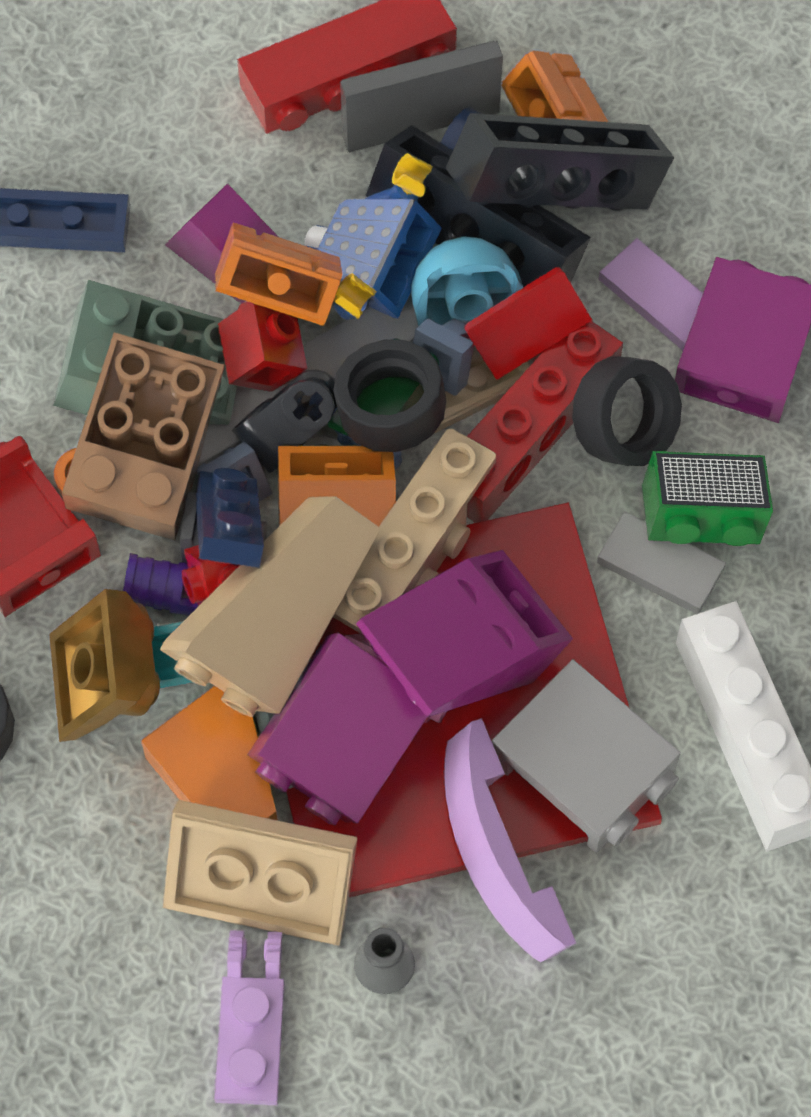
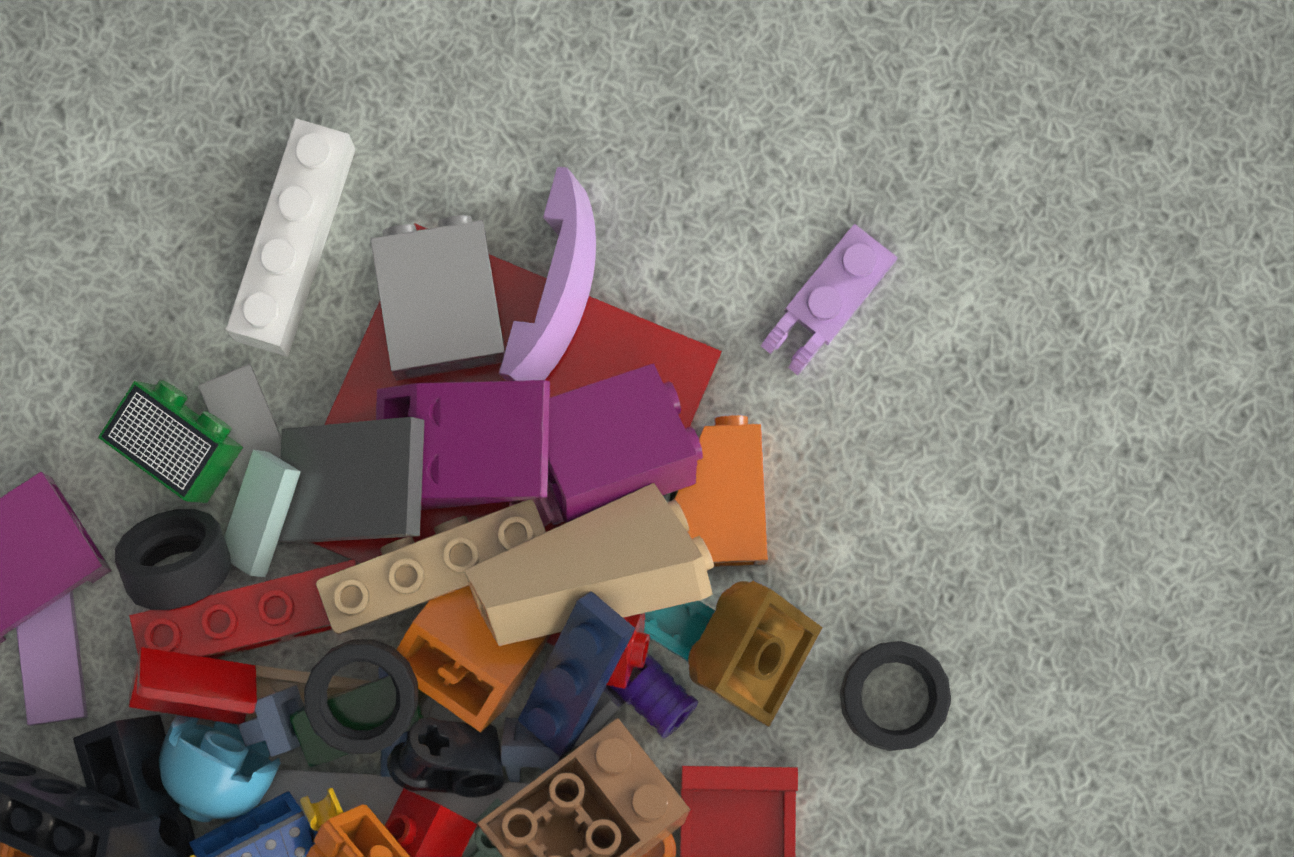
camera: 145 degrees left, 15 degrees up
(259, 872) = (751, 389): tan tile -> none
(388, 973) = (699, 279): dark grey cone -> none
(532, 550) = (354, 480): none -> dark grey tile
(590, 496) = (260, 512): none -> light aqua tile

